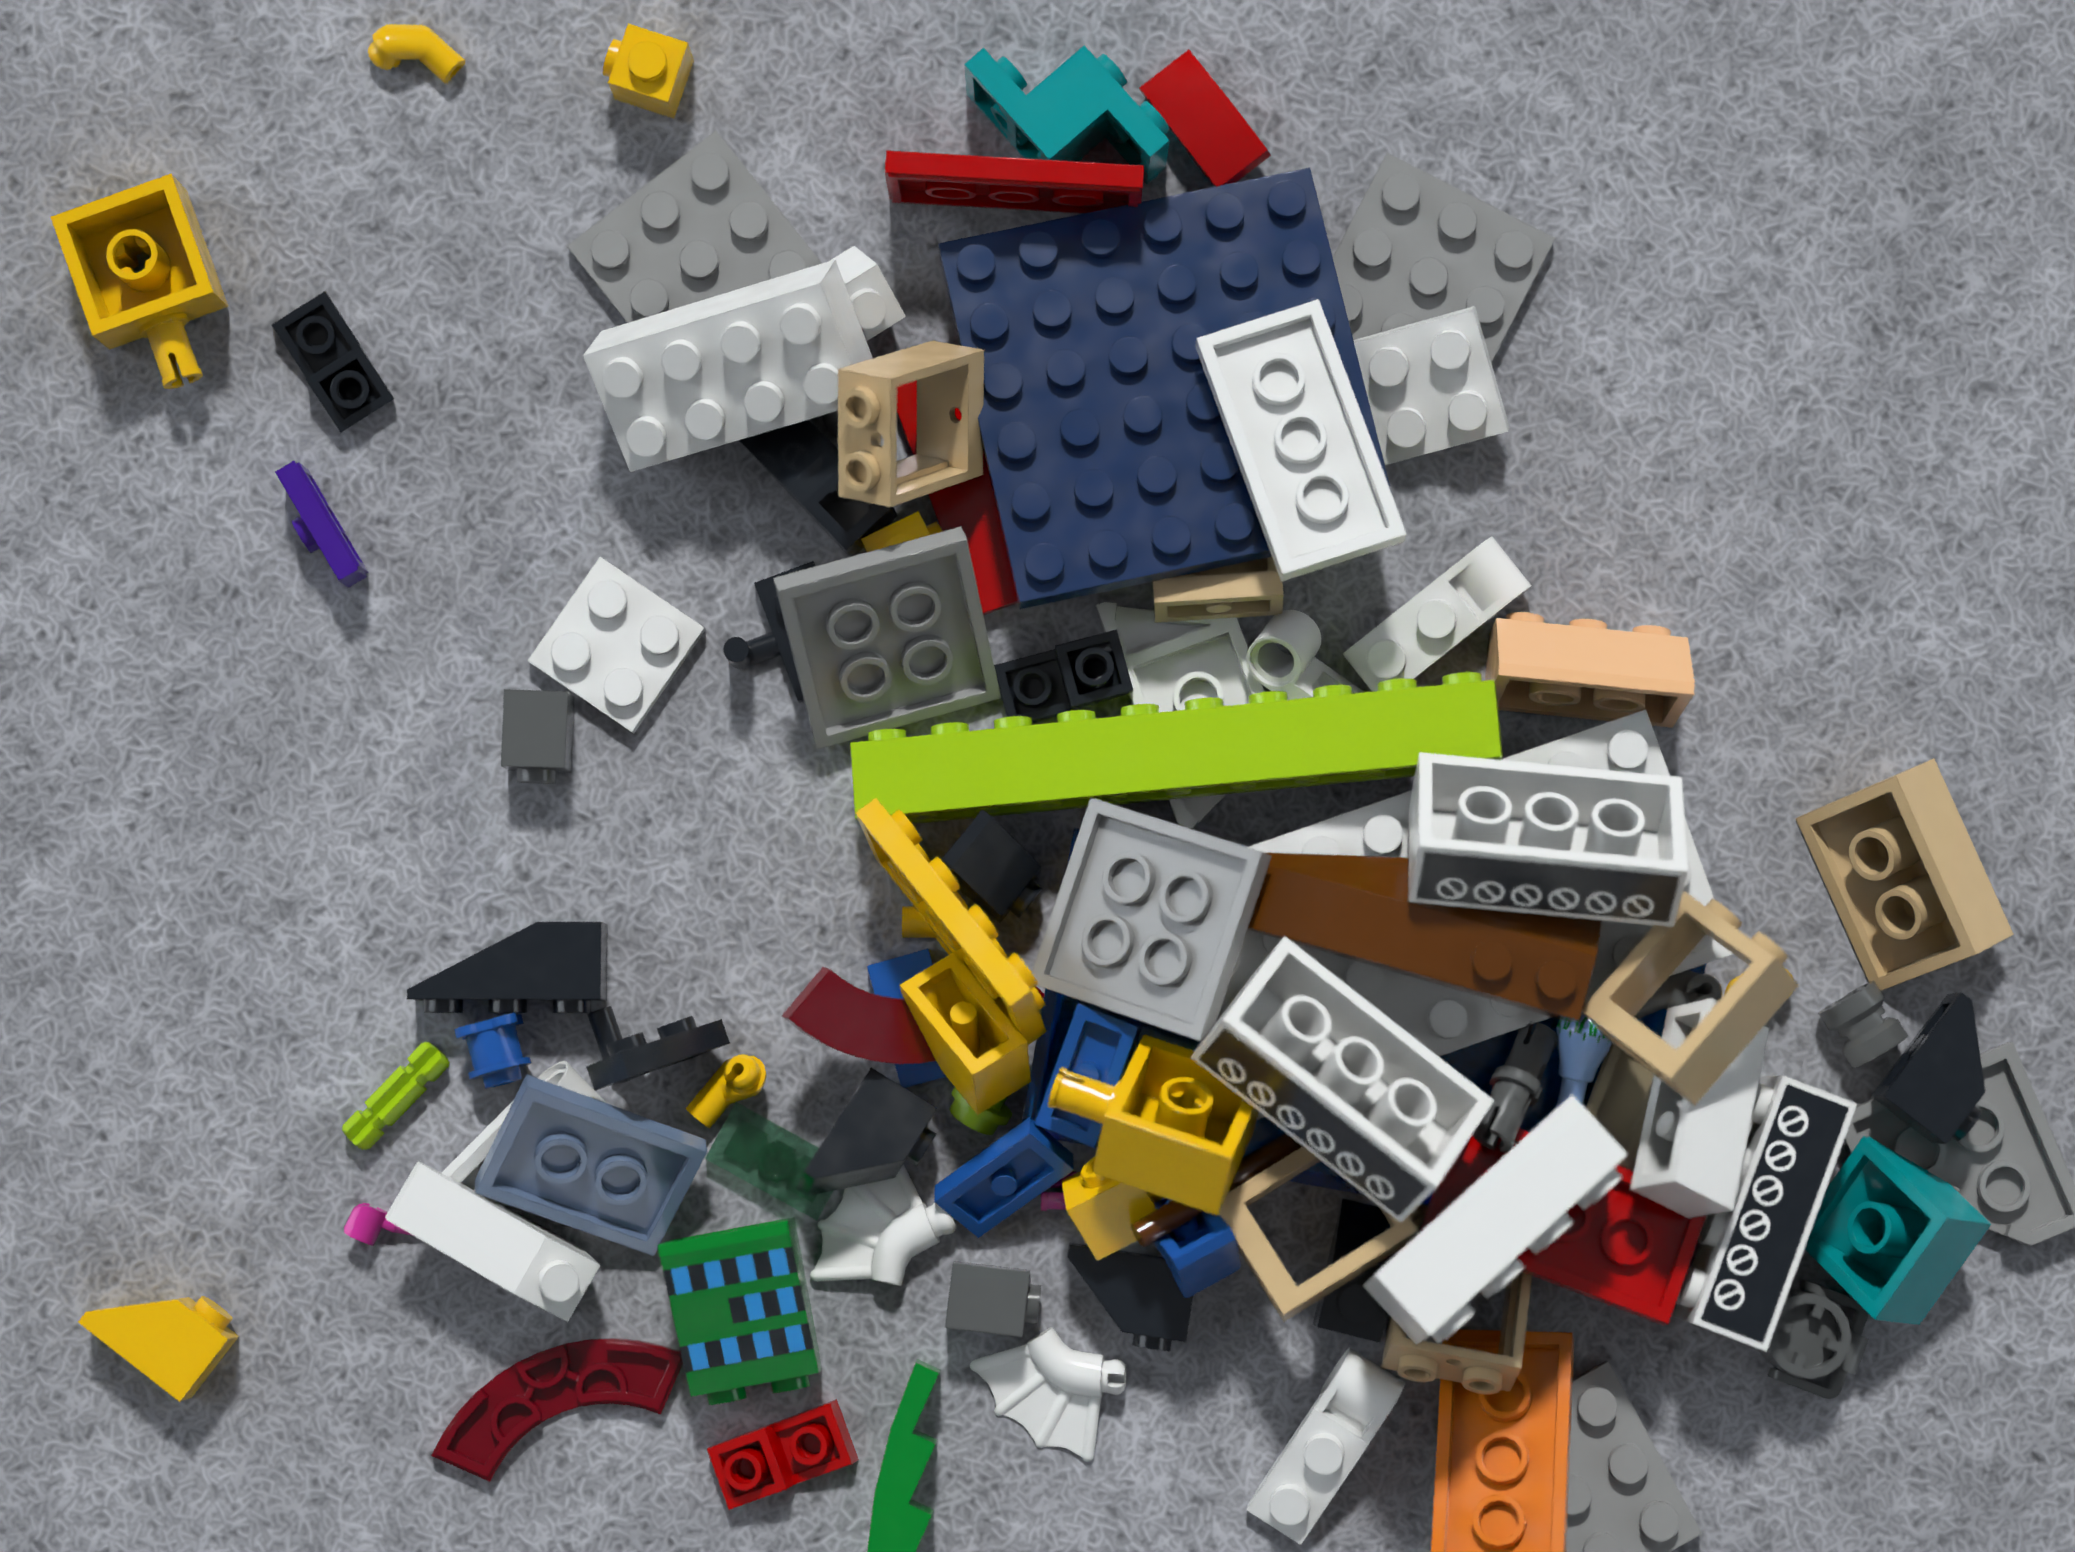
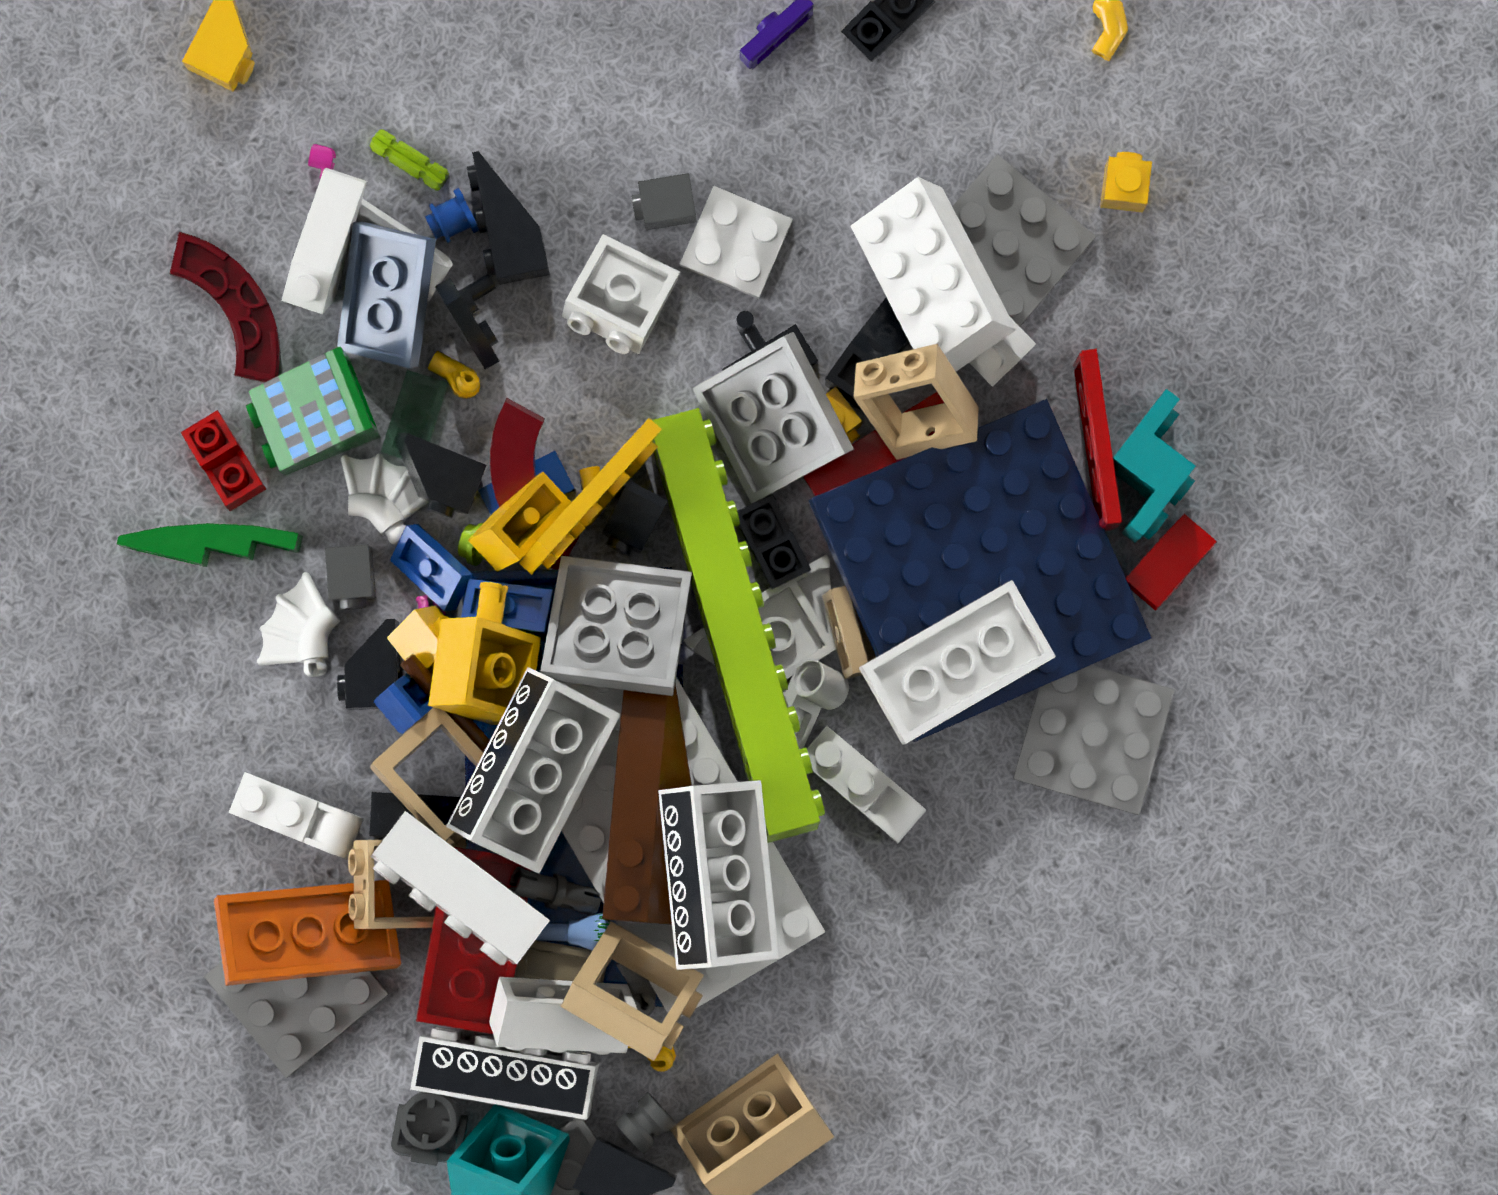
camera: 80 degrees right, 0 degrees up
(660, 827) = (619, 295): none -> white plate
(1431, 385) = (1019, 748): white plate -> none
(1589, 669) = (847, 889): light nougat slope -> none

